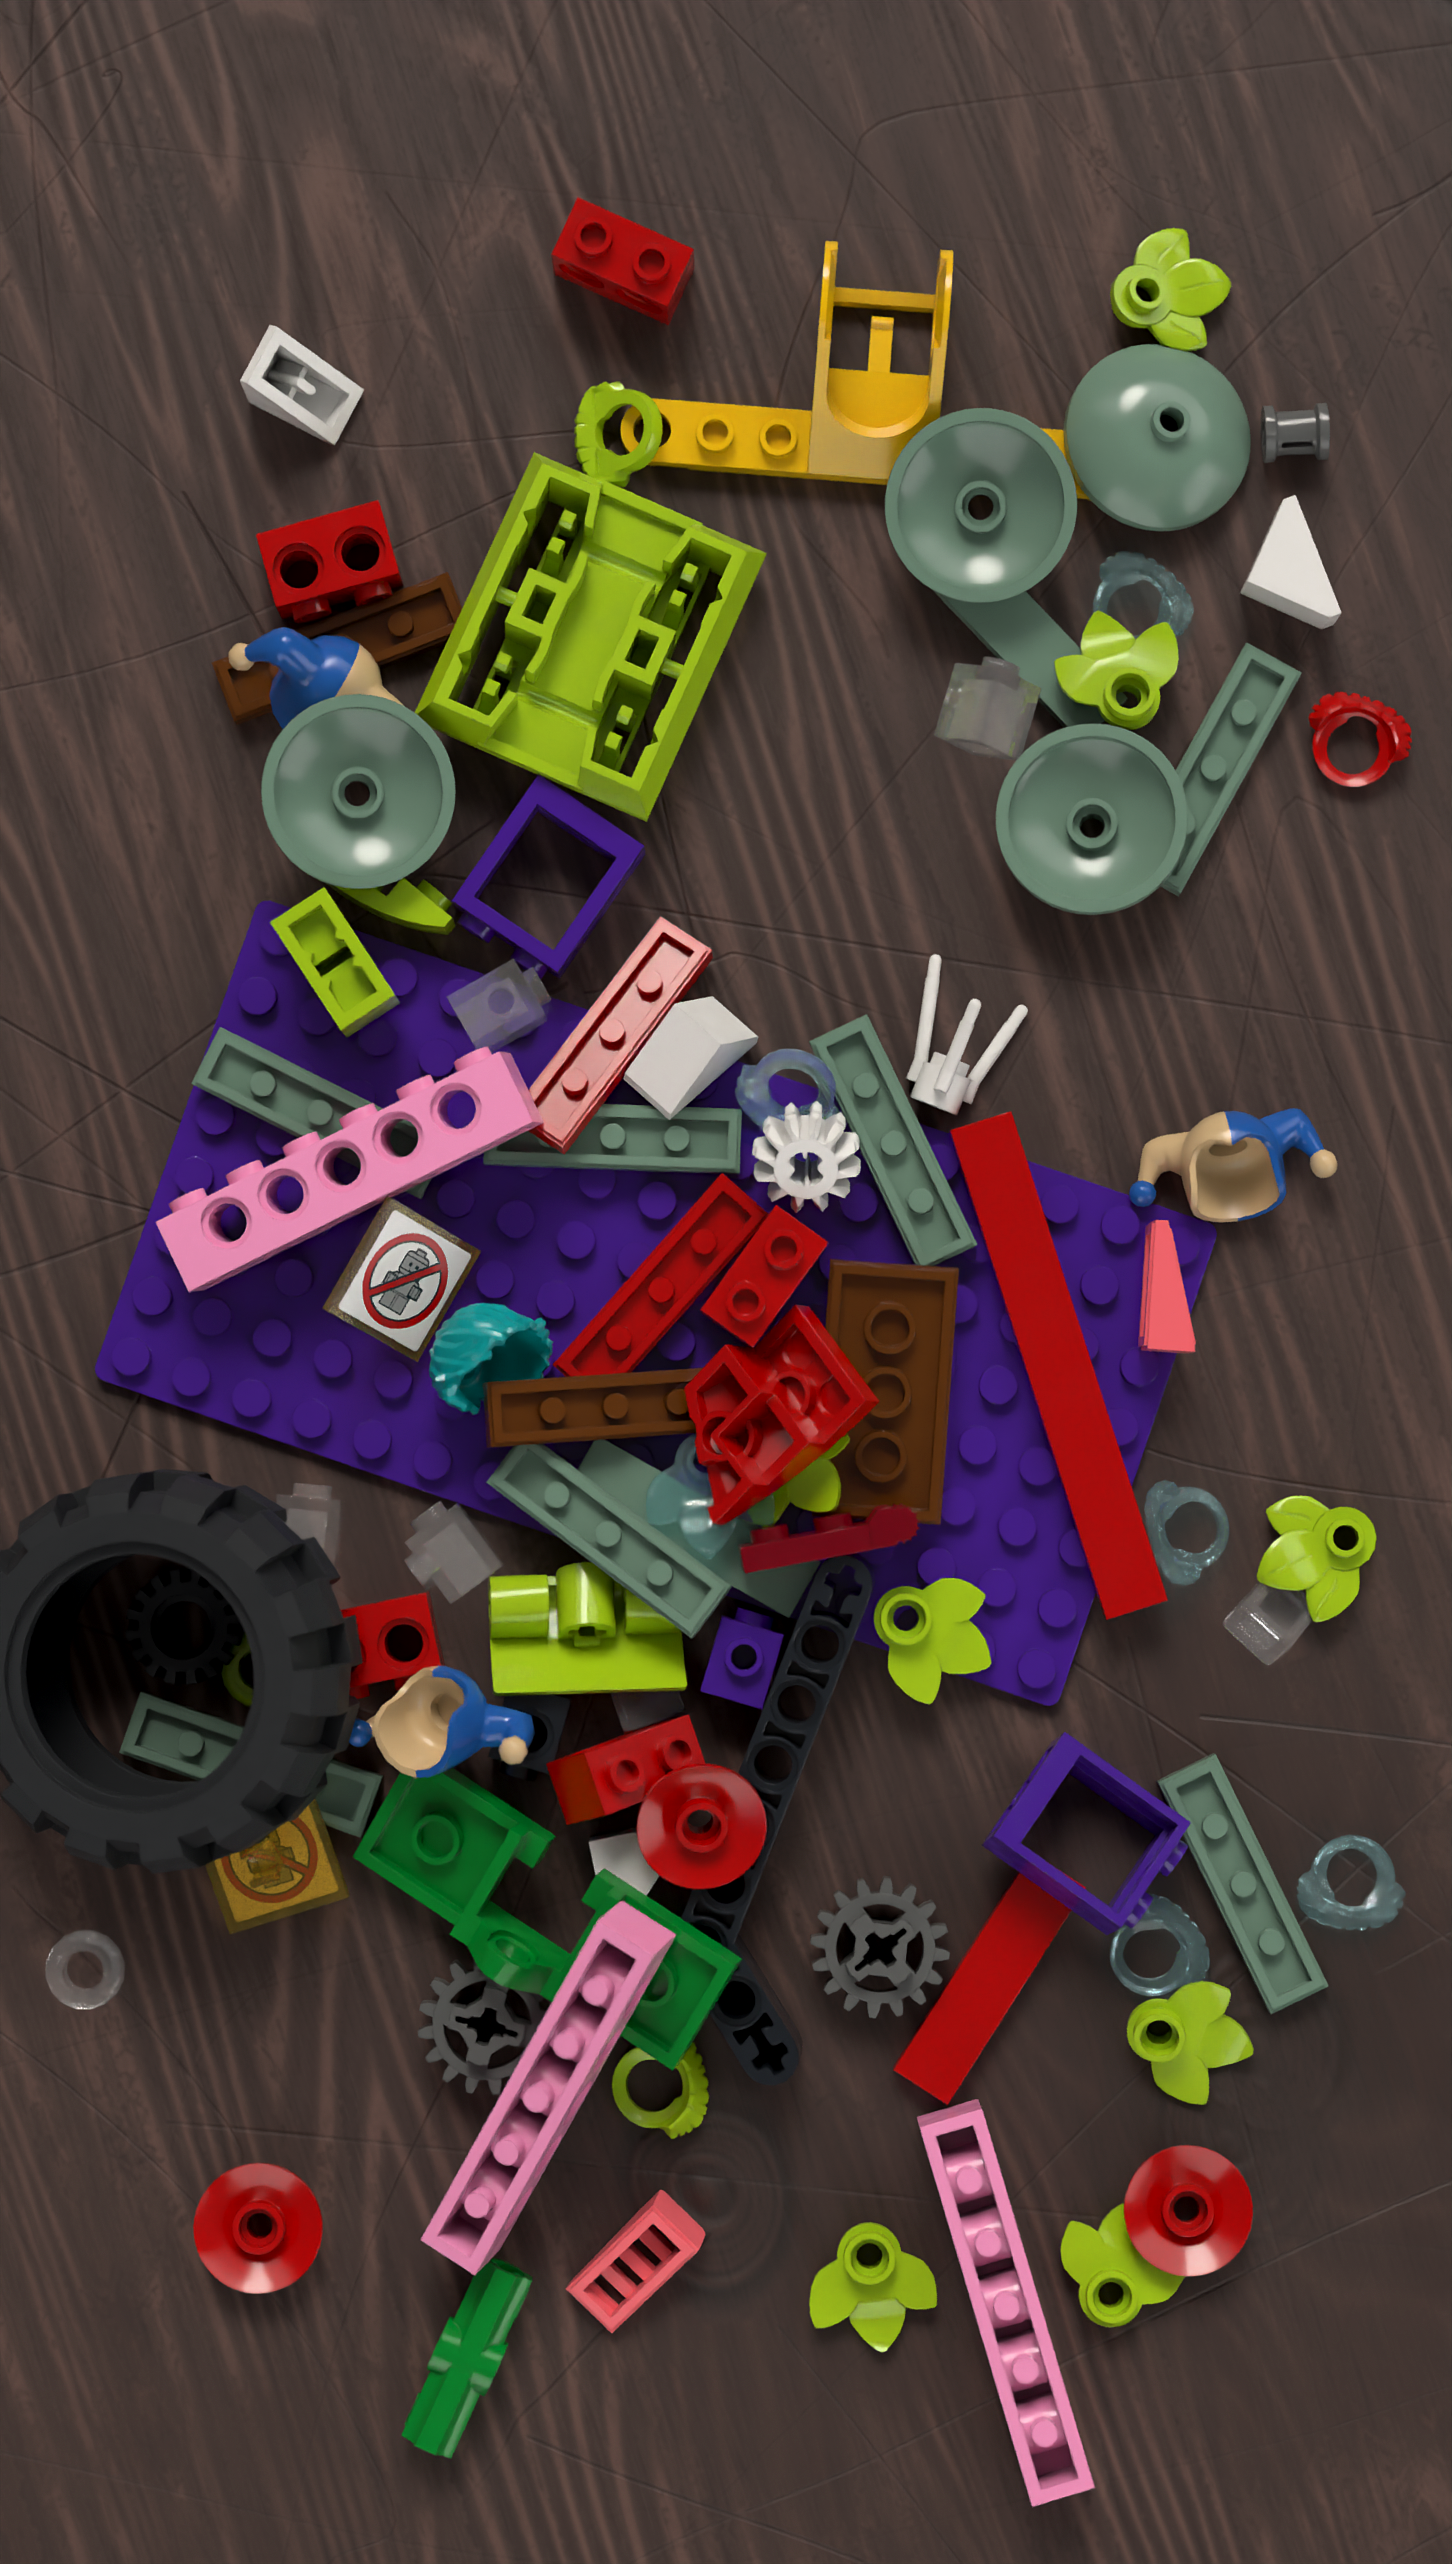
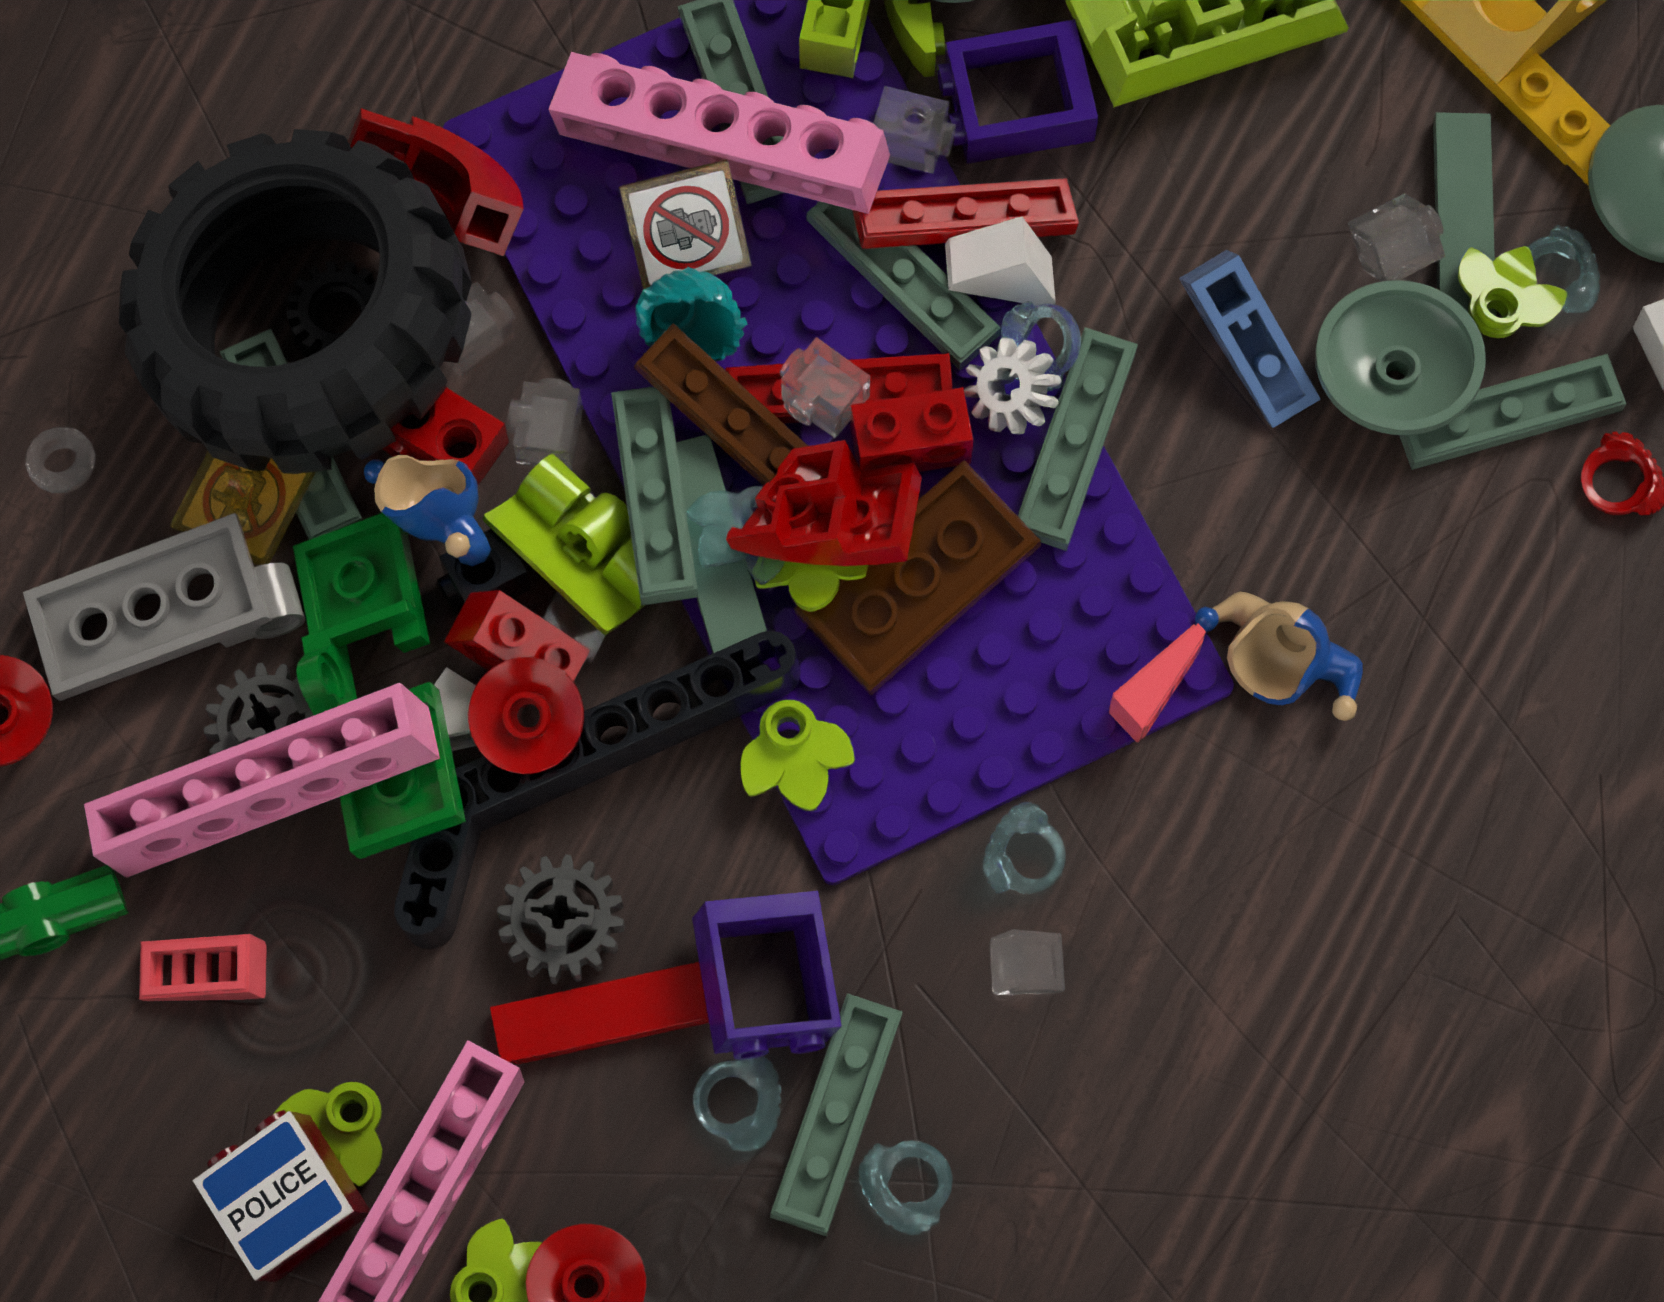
camera: 45 degrees right, 15 degrees down
(157, 1416) = (465, 181): none -> red arch
(365, 1951) = (242, 606): none -> light grey hinge
(656, 1313) = (822, 386): none -> clear brick
(683, 2113) = (335, 906): lime piece -> none
(743, 1658) = (657, 650): dark purple brick -> none
(832, 1537) = (750, 598): dark red hinge -> none
(889, 2379) = (281, 1195): none -> piece
(944, 1079) = (1147, 429): white plant -> none
(945, 914) = (1250, 337): none -> medium blue slope
(991, 457) = (1520, 78): sand green dish -> none
(1058, 1365) = (1043, 670): red tile -> none
(1196, 2041) = (706, 1183): lime plate -> none
(1310, 1559) = (1090, 945): lime plate -> none

